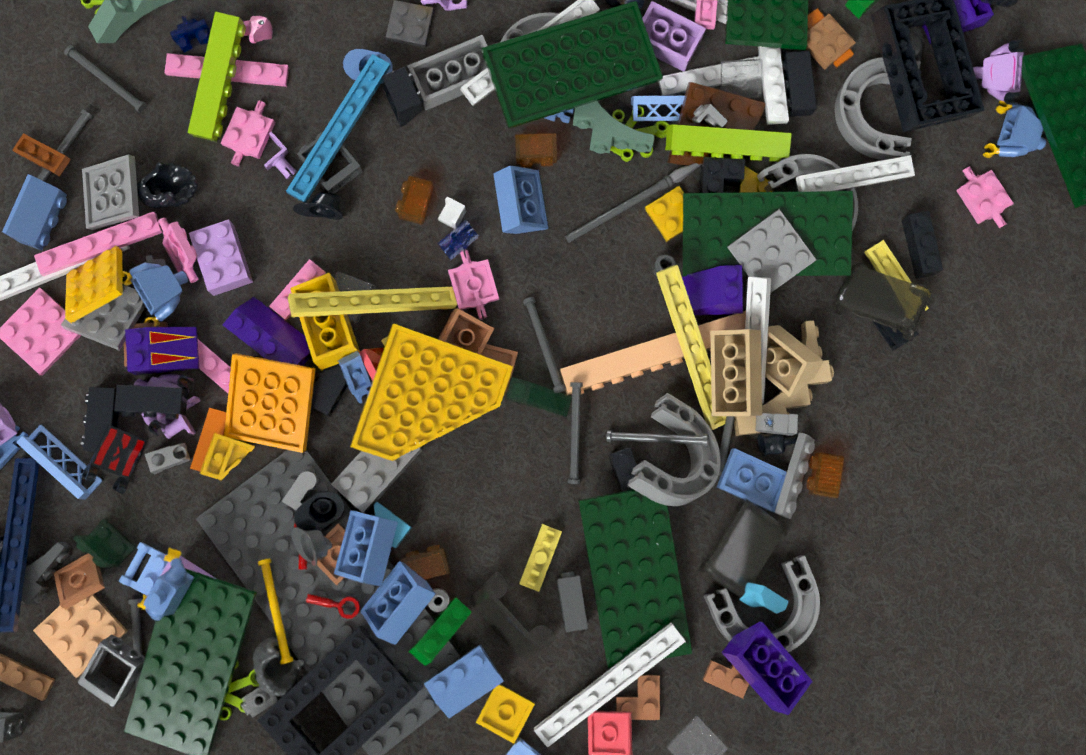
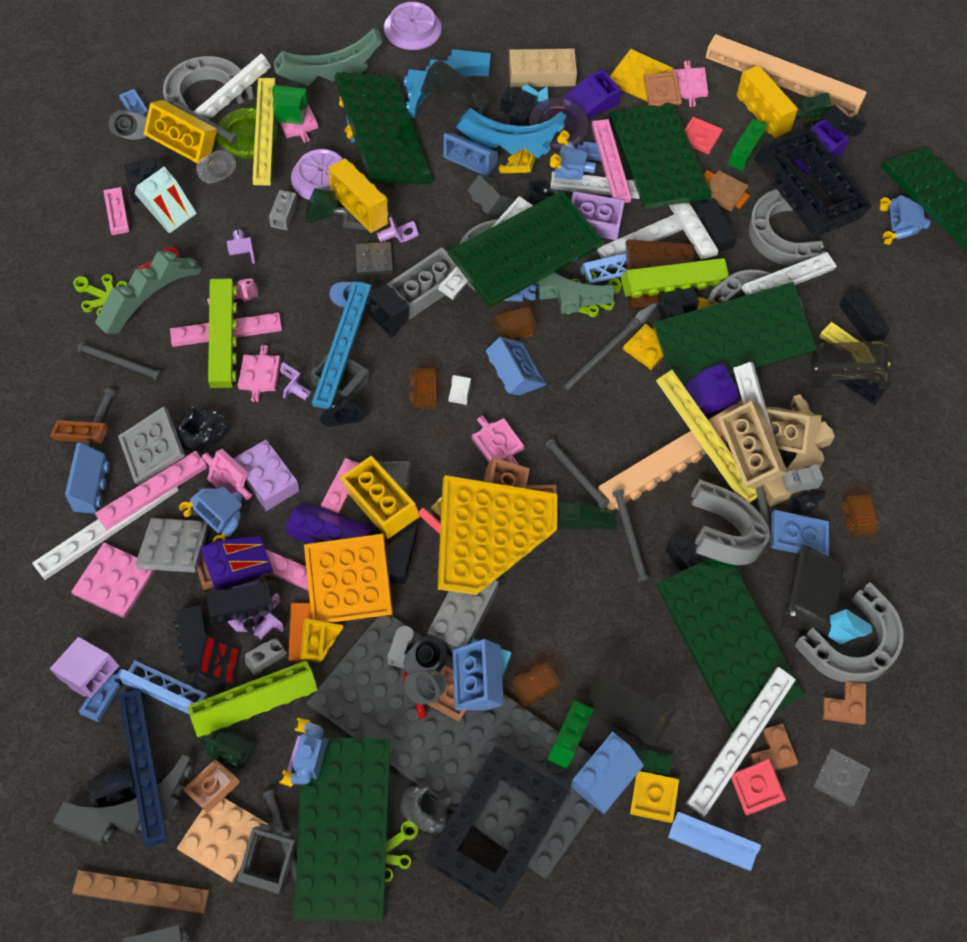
camera: 10 degrees left, 20 degrees down
(93, 284) = (158, 520): yellow plate -> none
(139, 502) = (252, 698): none -> lime brick
(151, 571) = (279, 762): light blue plate -> none
(190, 30) = (185, 306): clear blue hips -> none
(249, 705) = (417, 848): light grey brick -> none
(275, 611) = (386, 721): yellow bar -> none
(326, 602) = (457, 740): red piece -> none
(355, 375) = (421, 536): medium blue plate -> none
(371, 301) = (416, 468): light yellow plate -> none
(397, 603) = (522, 718): medium blue slope -> none
(439, 593) = (552, 711): light grey brick -> none
(458, 240) = (472, 409): clear blue hips -> none
(515, 675) = (654, 762): none -> dark green plate
(540, 557) = (637, 652): light yellow plate -> none
(571, 602) = (681, 676): dark grey window -> none
(659, 438) = (704, 520): dark grey bar -> none
(663, 260) = (654, 389): dark grey brick -> none
(712, 116) = (654, 258): light grey bracket -> none
(742, 78) = (667, 229): clear plate -> none
(767, 667) = (877, 683): dark purple slope -> none
(772, 251) = (743, 343): light grey plate -> none
(793, 481) = (834, 522): light grey plate -> none
(984, 197) = (899, 272): bright pink plate -> none
(1002, 72) = (873, 176): lavender torso -> none

